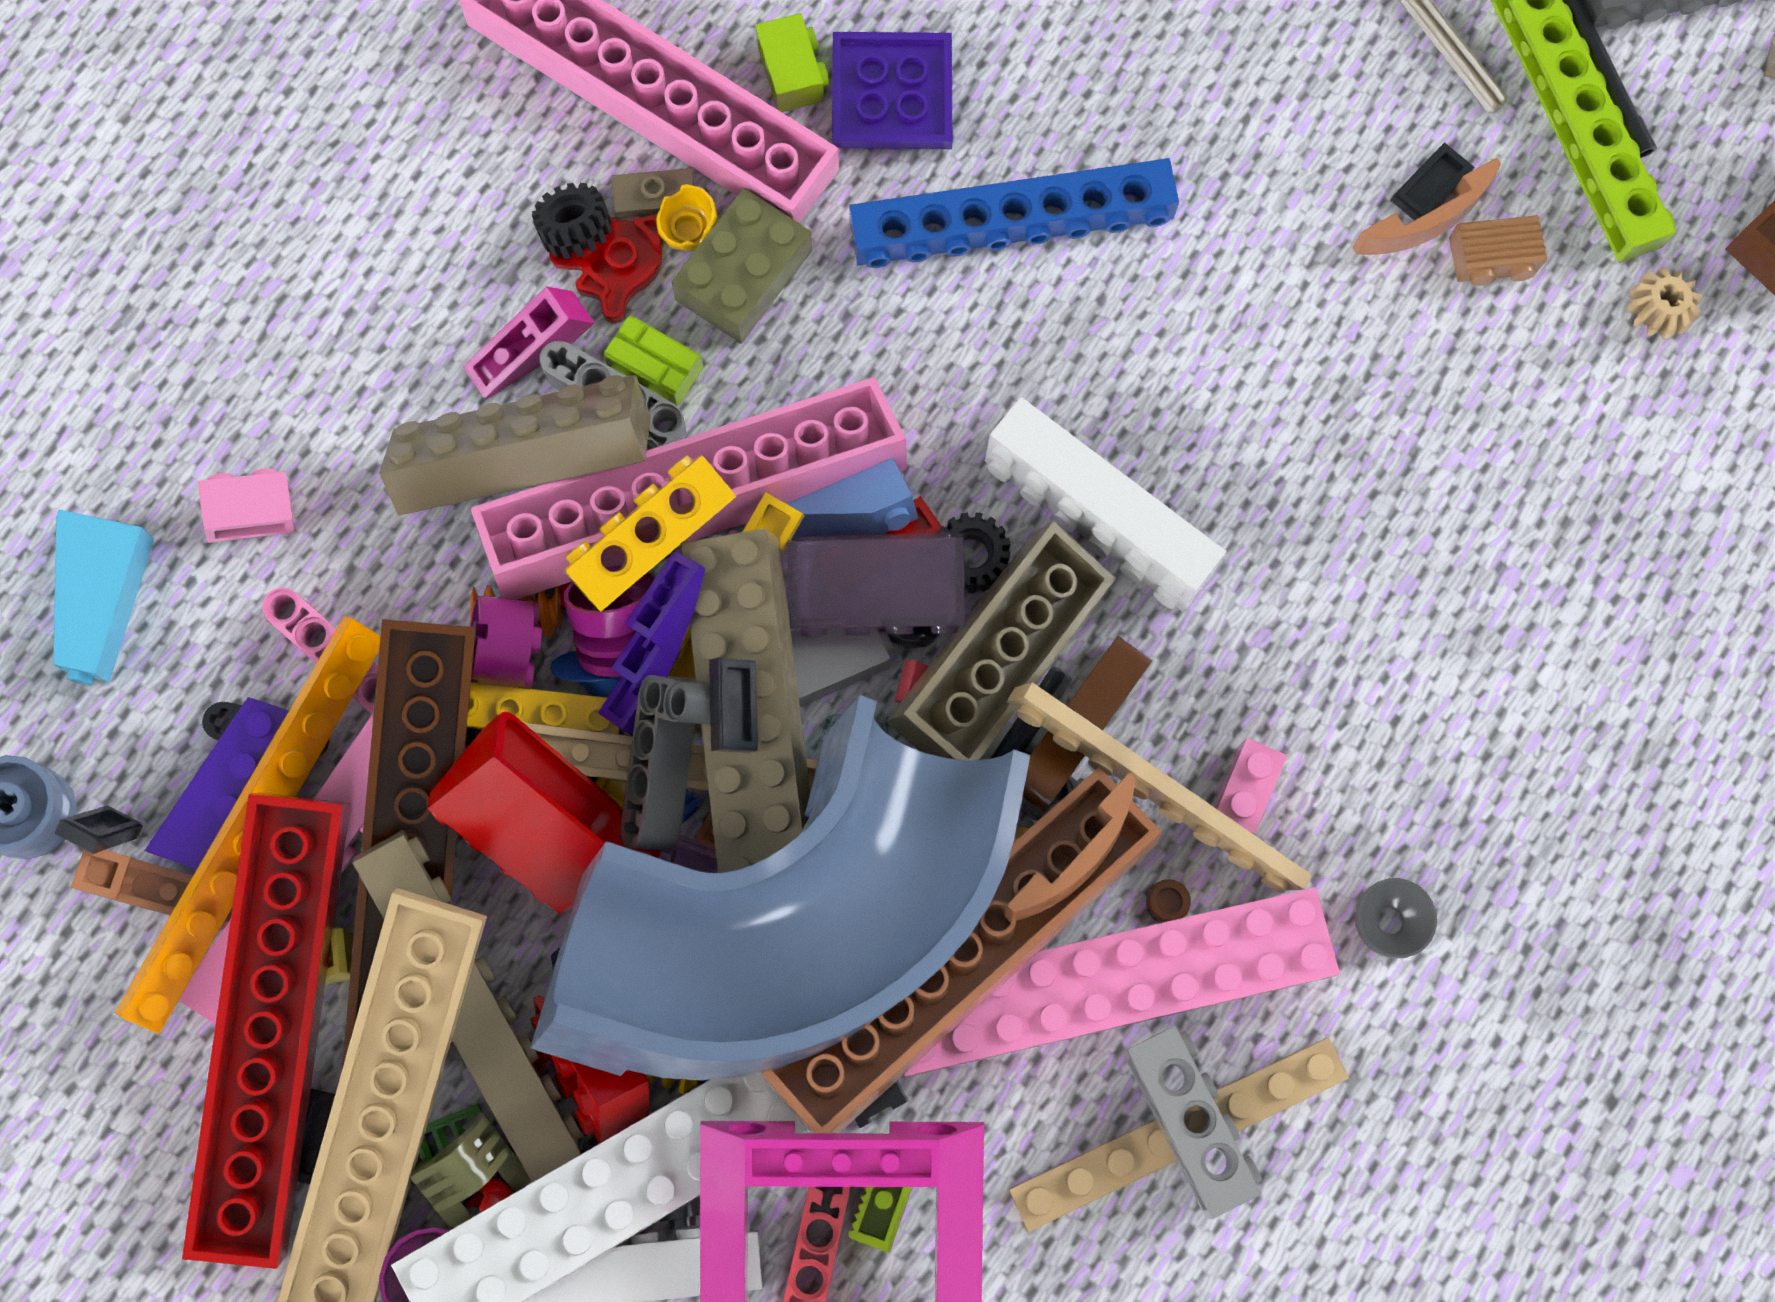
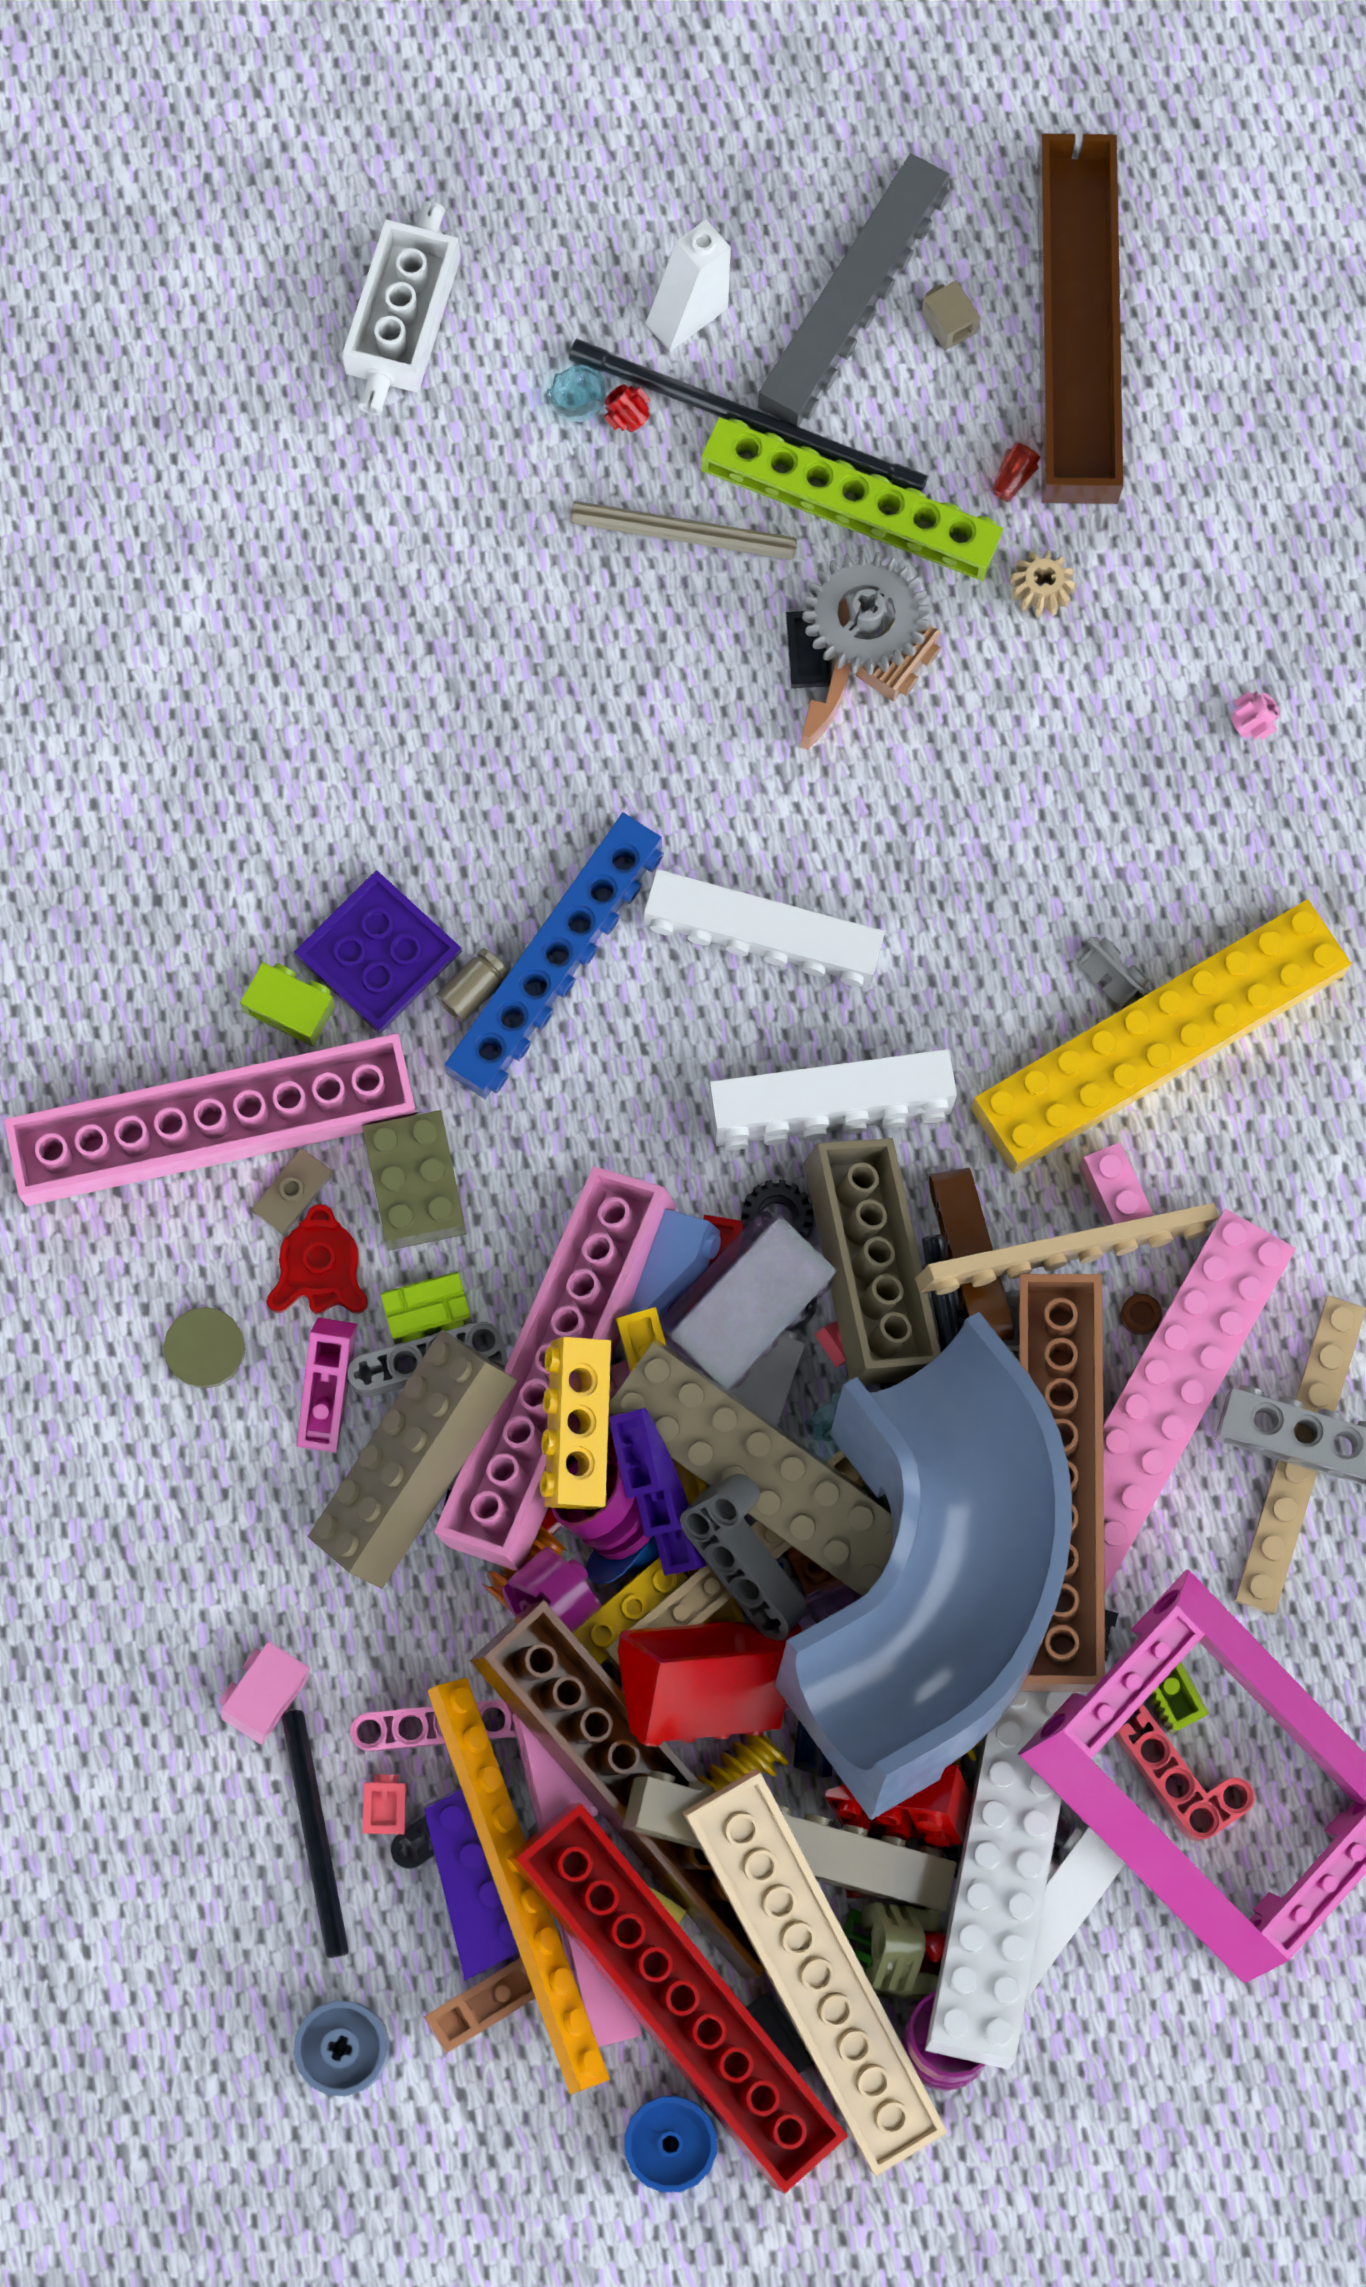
camera: 45 degrees left, 0 degrees up
(95, 591) = (221, 1852): medium azure slope -> none
(99, 829) = (416, 2000): black tile -> none
(126, 1132) = (665, 2169): none -> blue wheel
(173, 642) = (315, 1834): none -> black axle
(237, 670) = (384, 1805): none -> coral bracket
(476, 236) = (204, 1347): none -> olive tile
(512, 918) = (758, 1755): none -> yellow piece
(556, 211) = (248, 1258): black tyre -> none
(686, 218) = (343, 1187): yellow hair -> none
(733, 705) = (760, 1475): black tile -> none
(931, 174) = (472, 985): none -> dark tan piece
(1041, 894) = (1065, 1295): nougat slope -> none
(1186, 341) = (763, 928): none -> white brick
(1407, 713) = (1160, 1036): none -> yellow brick
(1417, 916) = (1302, 1160): dark grey piece -> none
(1419, 615) = (1103, 960): none -> light grey hinge
(1520, 175) = (875, 589): none -> light grey gear
(1728, 206) = (1015, 470): none -> clear red cone
(1732, 553) = (1255, 715): none -> bright pink gear

